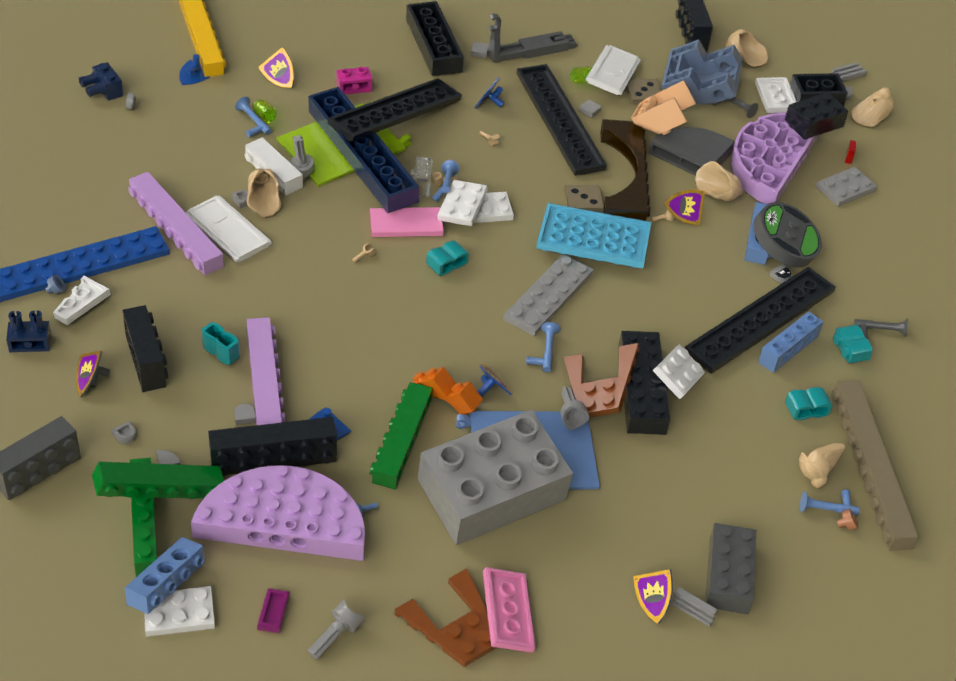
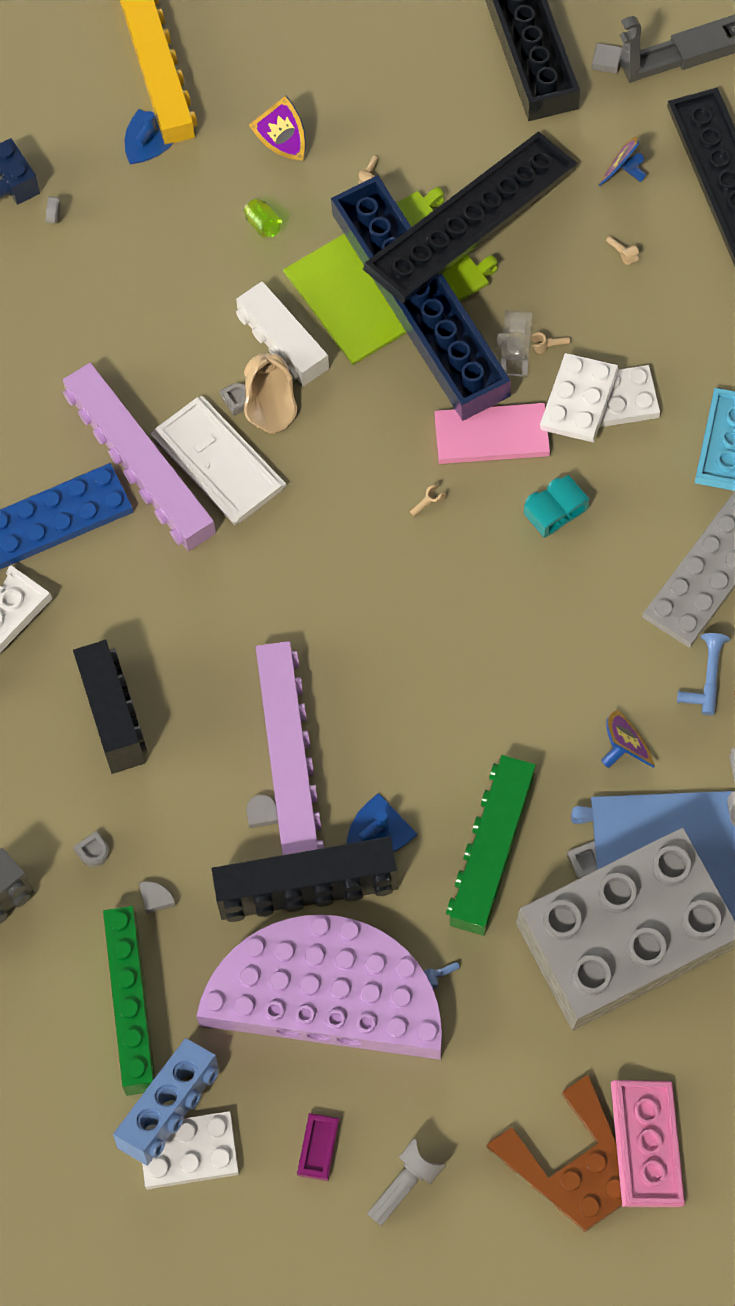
camera: 10 degrees right, 20 degrees up
(88, 371) = (31, 747): shield -> none
(155, 480) = (145, 954): green brick -> none
(220, 343) = (223, 692): teal brick -> none
(243, 104) = (230, 209): medium blue piece -> none
(302, 161) = (326, 327): light grey piece -> none
(354, 80) = (402, 144): dark pink brick -> none
(449, 168) = (558, 323): medium blue piece -> none
(460, 396) = (575, 773): orange arch -> none

